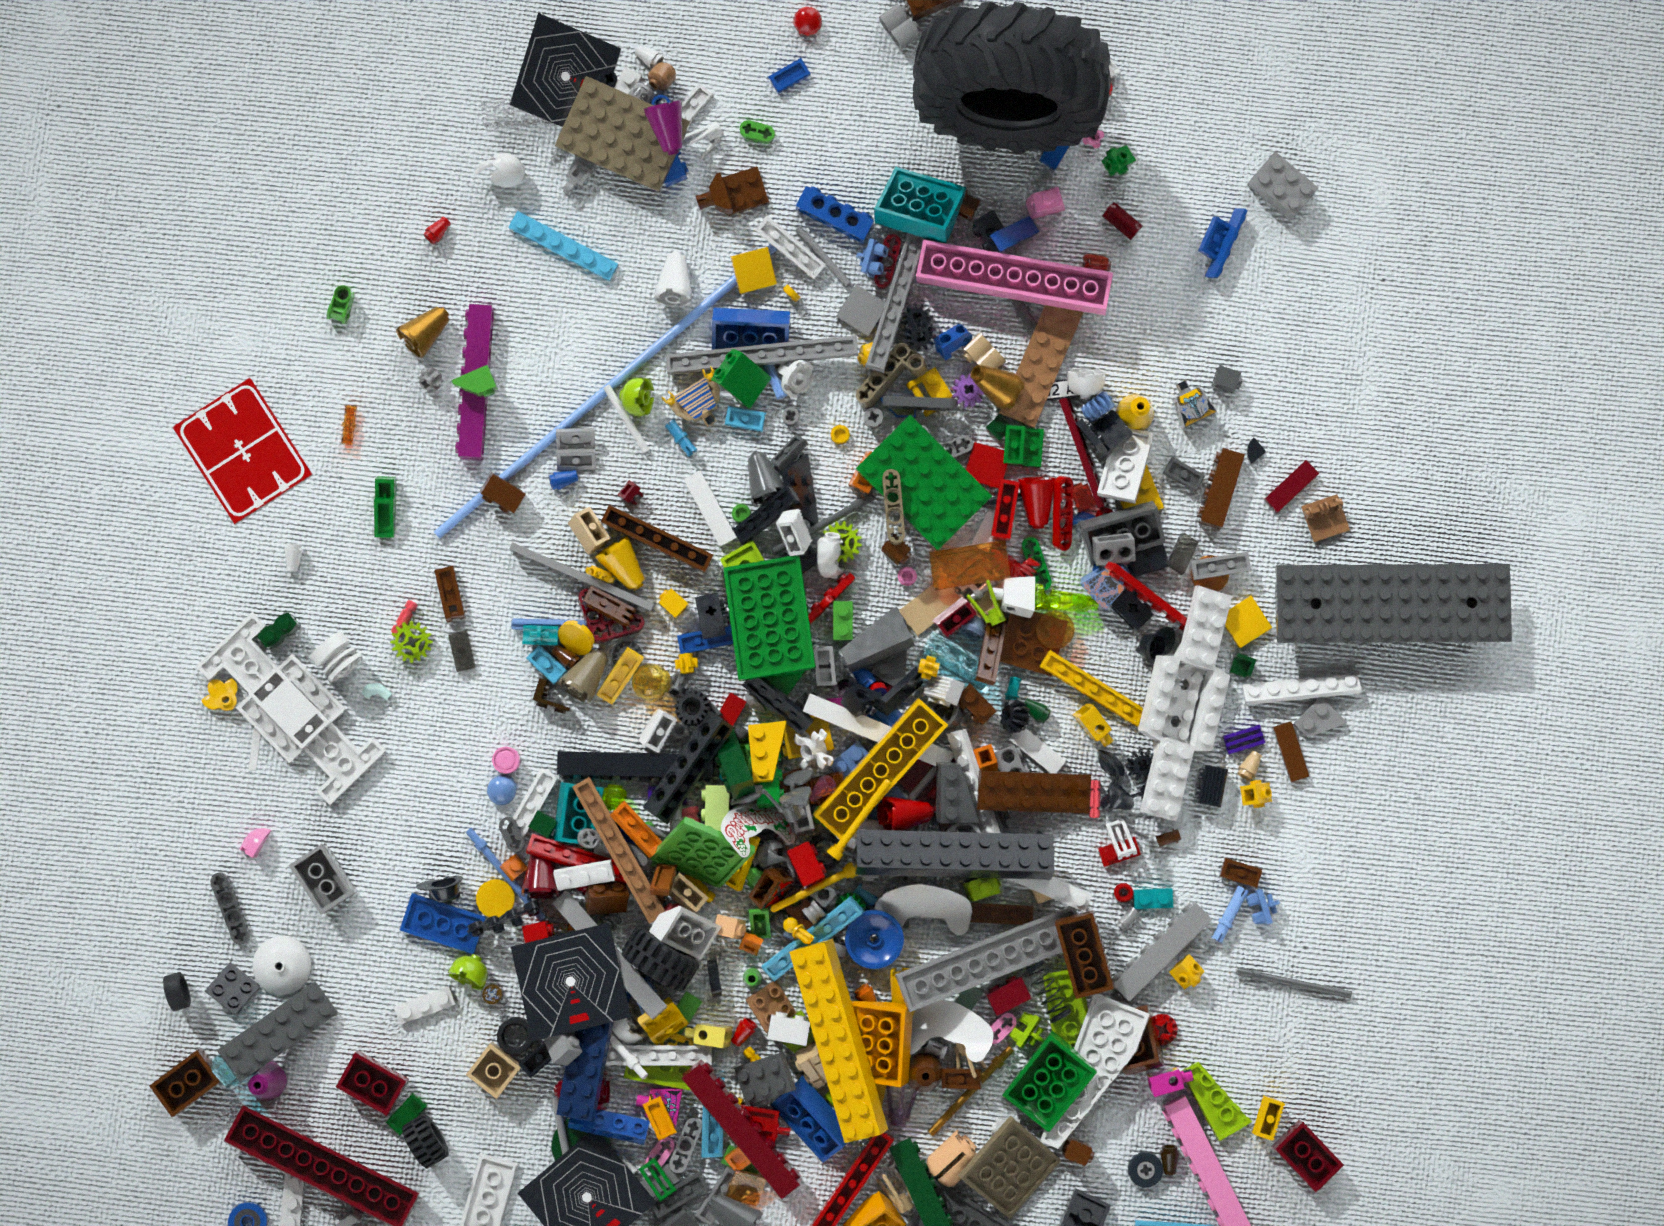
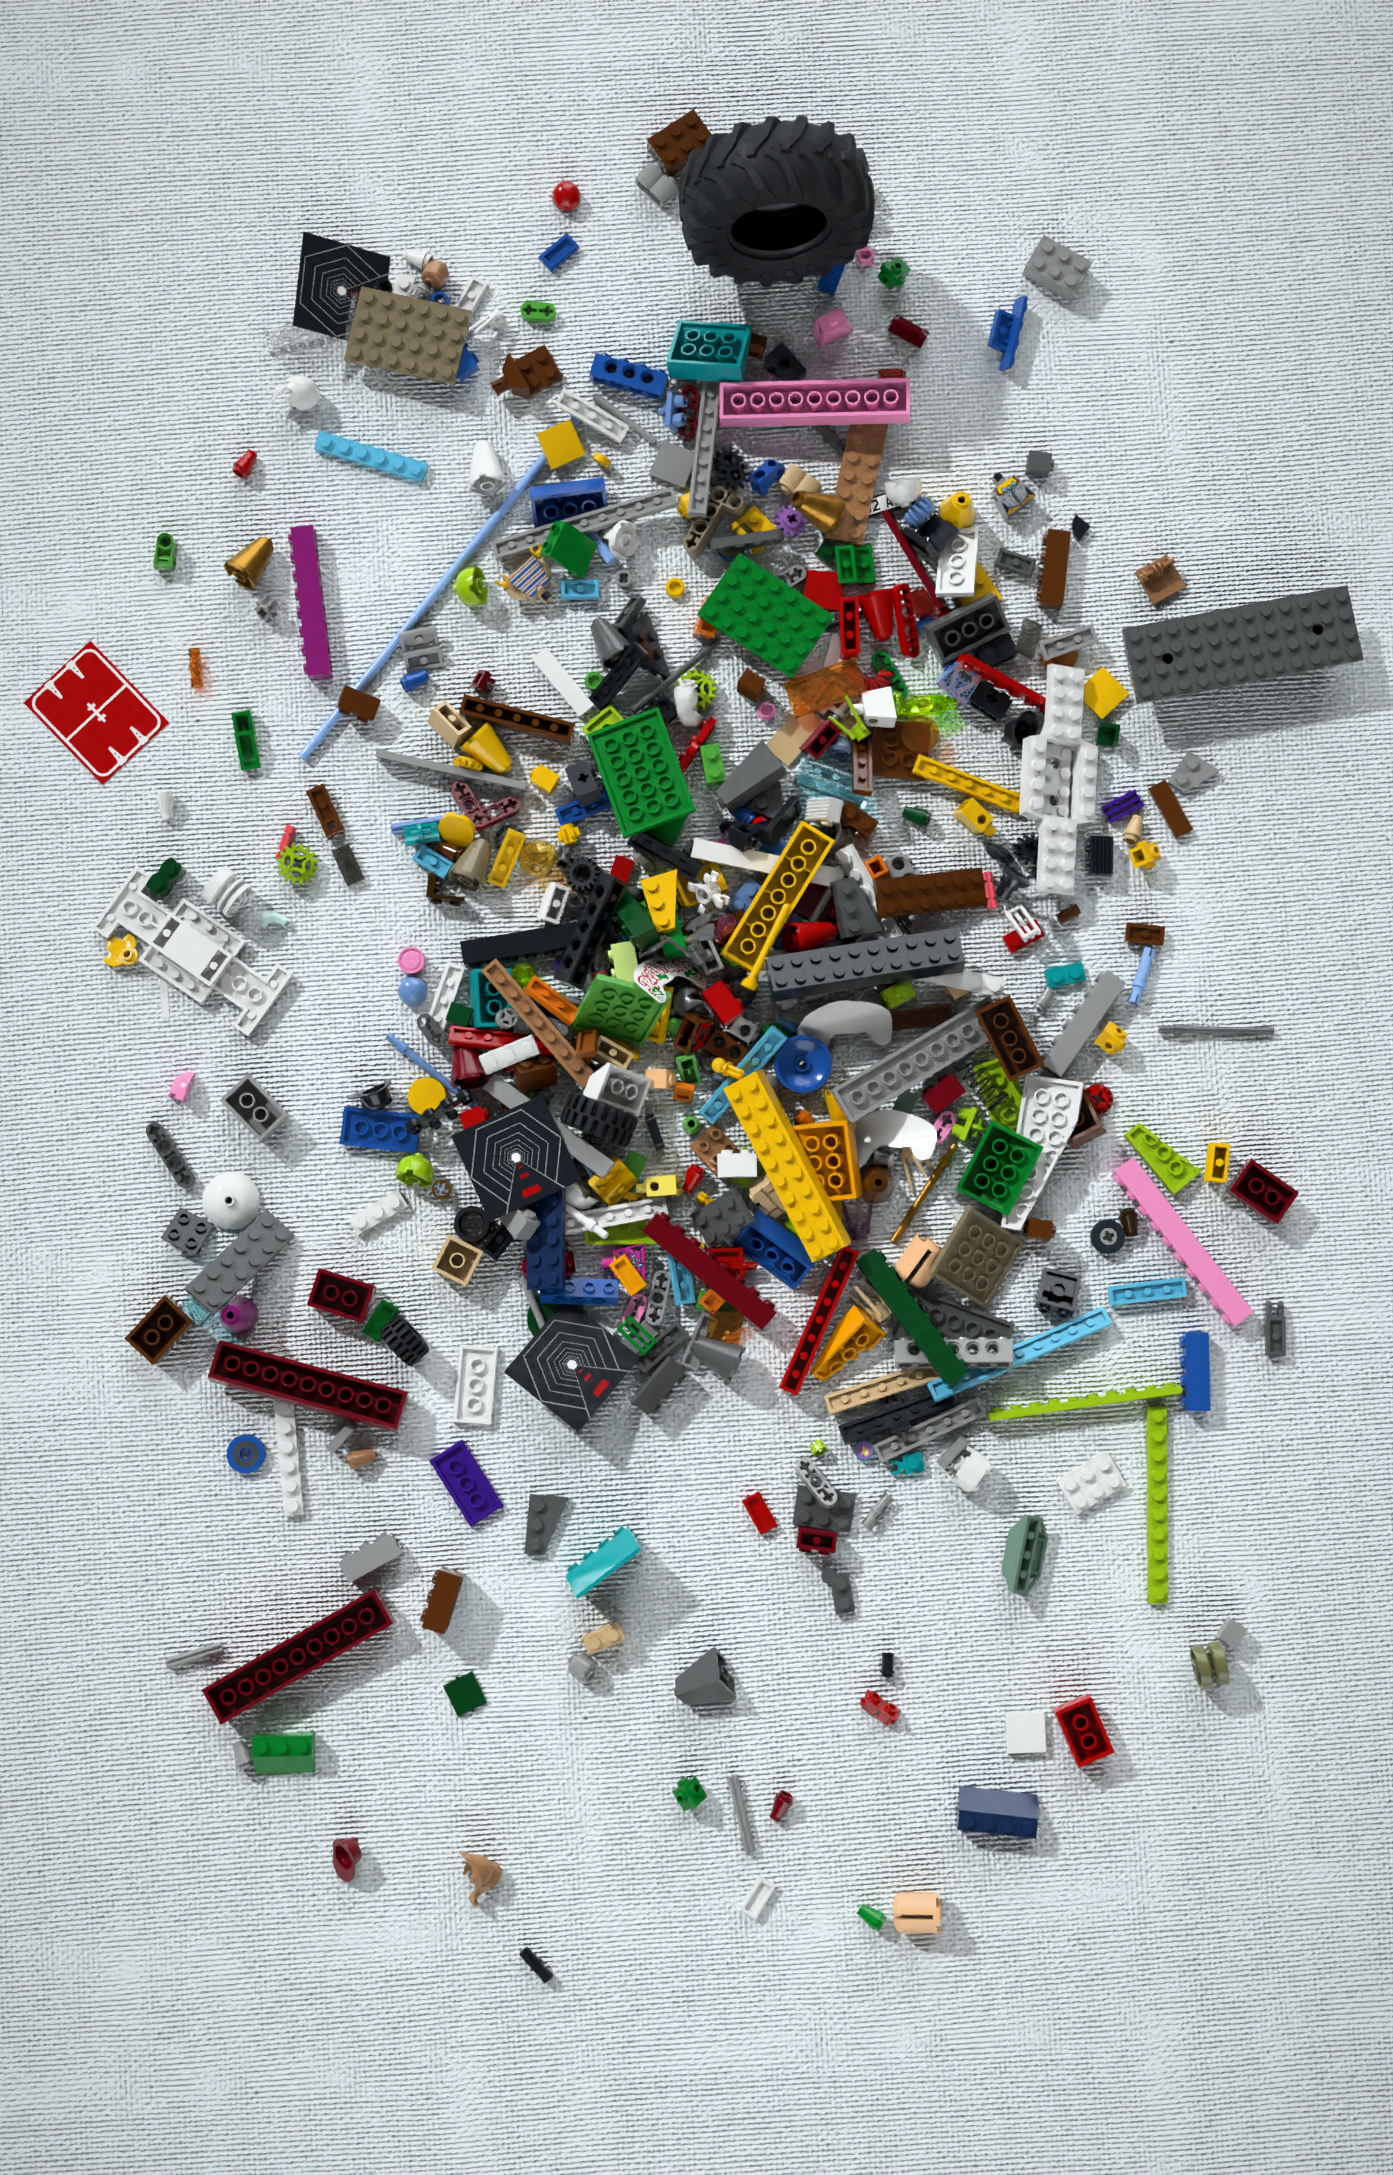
camera: 10 degrees left, 0 degrees up
(176, 991) = (133, 1243): black tyre -> none
(477, 382) = (312, 600): bright green slope -> none
(513, 867) = (438, 1062): orange plate -> none
(578, 176) = (371, 386): light grey plate -> none
(608, 606) = (483, 792): reddish brown hinge -> none
(625, 417) = (464, 610): white bar -> none
(667, 125) = (449, 315): magenta cone -> none
(681, 438) = (521, 619): dark azure pin -> none
(794, 532) = (649, 685): white brick -> none
(813, 912) = (739, 1048): light grey wheel -> none
(825, 666) = (704, 814): light grey brick -> none
(847, 872) = (764, 1003): yellow piece -> none
(874, 421) = (702, 568): light grey wheel -> none
(893, 507) = (741, 642): dark tan beam -> none
(928, 667) = (804, 792): yellow gear -> none
(960, 1078) = (912, 1182): reddish brown plate -> none
(1013, 688) = (890, 800): teal pin -> none
(1014, 233) = (807, 361): blue tile -> none
(1014, 716) = (897, 824): black gear -> none
(1038, 751) = (924, 853): white tile -> none
(1114, 544) = (962, 638): light grey brick -> none
(1128, 888) = (1038, 970): red plate -> none
(1160, 1084) = (1106, 1148): dark pink torso -> none
(1263, 915) = (1175, 969): medium blue hips -> none
(1291, 486) = (1121, 555): dark red tile -> none
(1301, 688) = (1169, 746): white plate -> none

